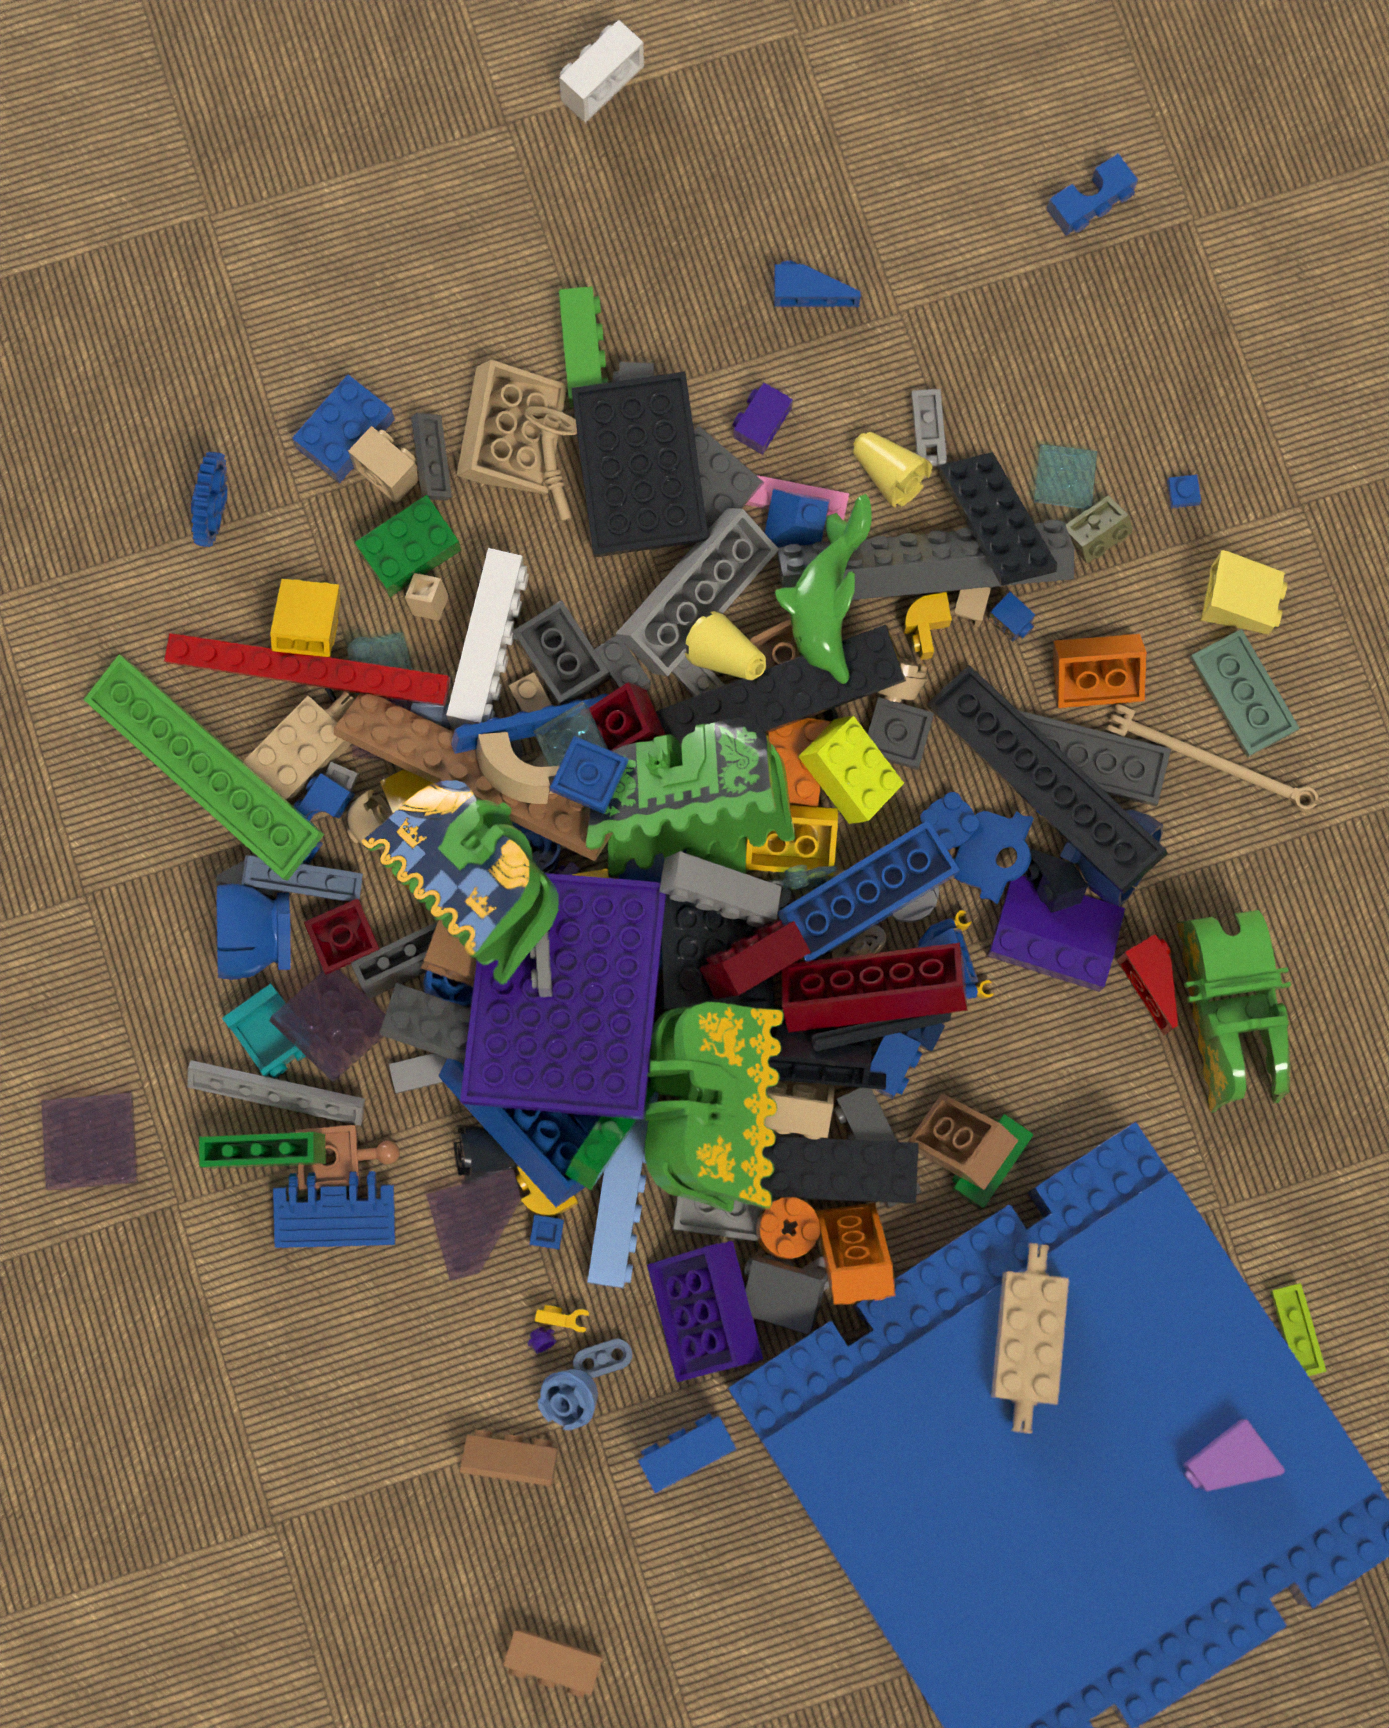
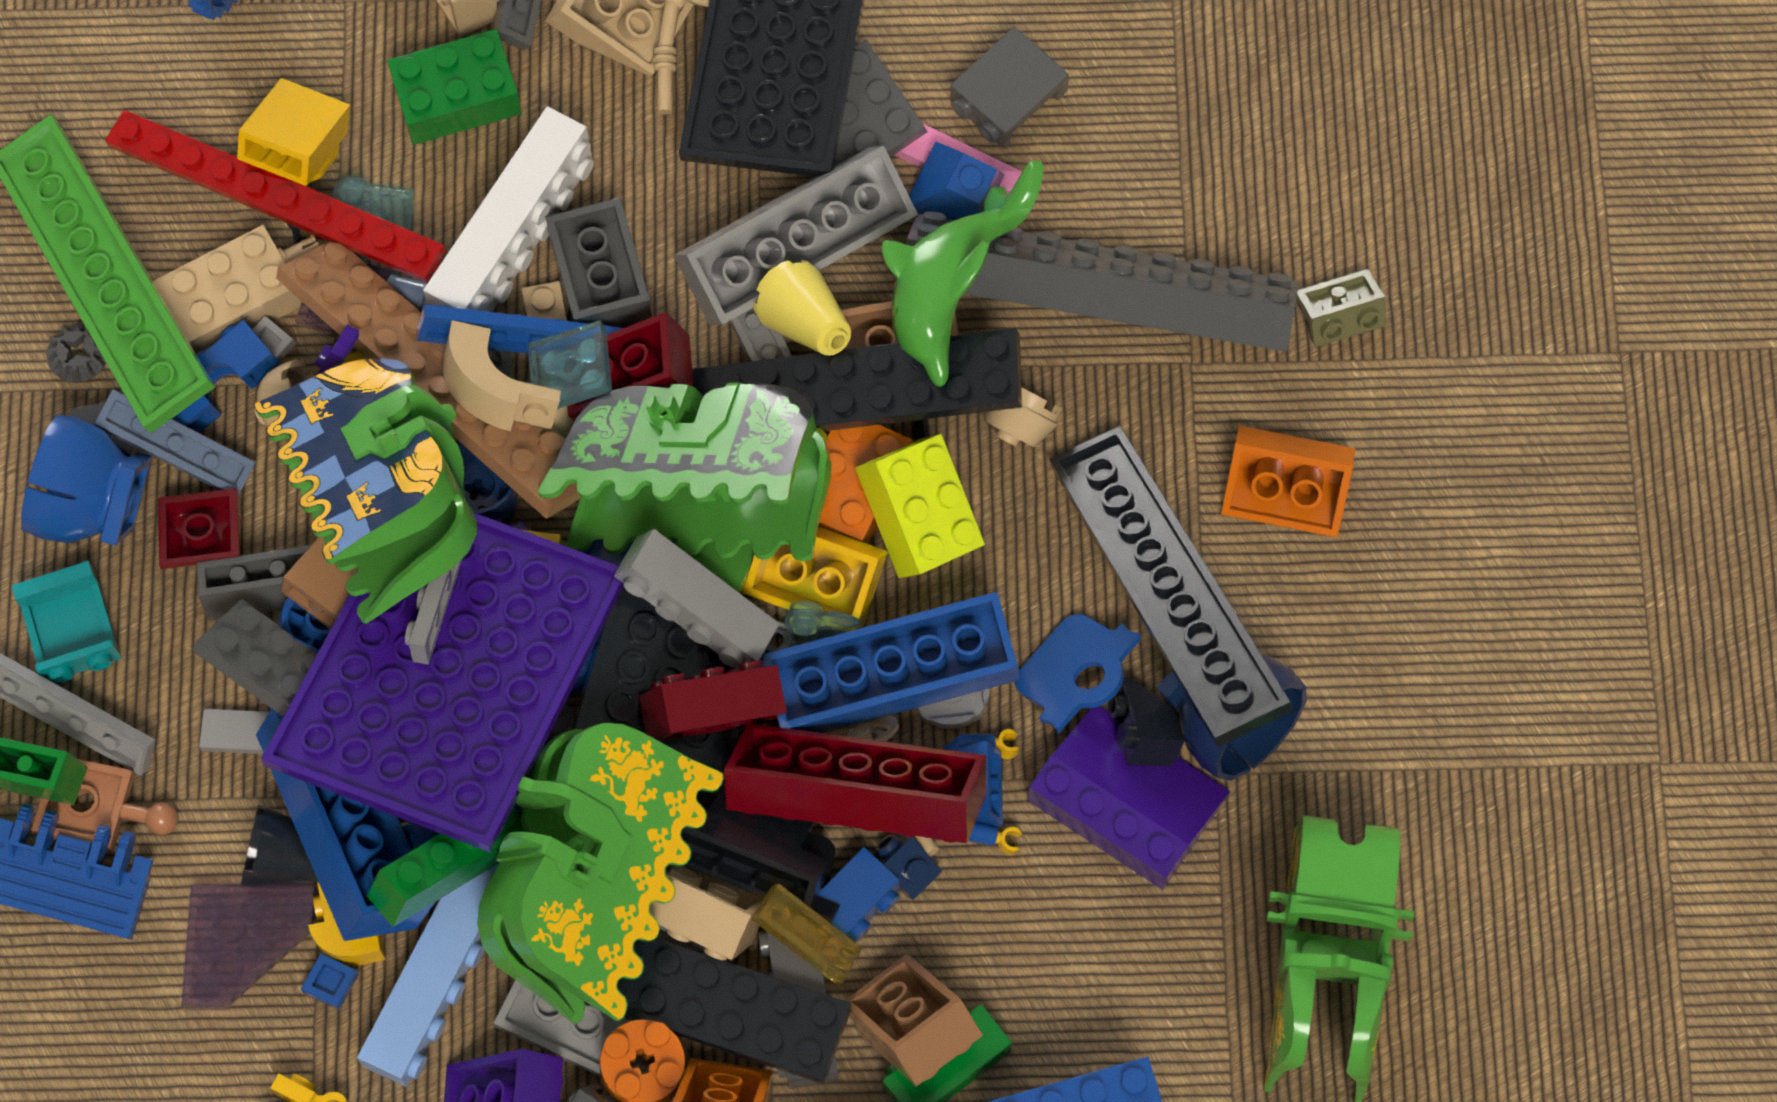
camera: 20 degrees right, 10 degrees down
(189, 834) = (80, 367): none -> dark grey gear
(331, 1023) = (143, 631): plate -> none
(398, 786) = (335, 356): none -> dark purple plate
(426, 596) = (456, 153): tan panel -> none
(589, 774) = (572, 405): blue plate -> none
(622, 664) = (670, 294): dark grey brick -> none
(762, 418) = (949, 55): dark purple brick -> none
(810, 431) = (1007, 87): none -> dark grey panel
(867, 1031) = (848, 840): black axle -> none
(871, 1102) = (806, 933): none -> clear yellow hinge
(891, 467) = (1098, 160): light yellow cone -> none
(900, 732) = (1003, 484): dark grey plate -> none
(925, 615) = (1083, 349): yellow brick -> none
(929, 425) = (1161, 126): light grey plate -> none
(951, 820) = (1034, 613): blue piece -> none
(972, 604) = (1148, 351): tan panel -> none
(997, 519) = (1208, 249): black plate -> none
(1012, 617) = (1194, 383): blue brick -> none
(1065, 476) = (1319, 233): clear light blue plate -> none
(1113, 762) = (1270, 600): dark grey plate -> none
(1127, 724) = (1305, 560): tan hinge -> none
(1151, 976) = (1232, 873): red slope -> none
(1184, 491) = (1469, 293): blue plate -> none
(1244, 594) = (1508, 436): light yellow slope -> none
(1244, 693) = (1472, 563): sand green plate -> none

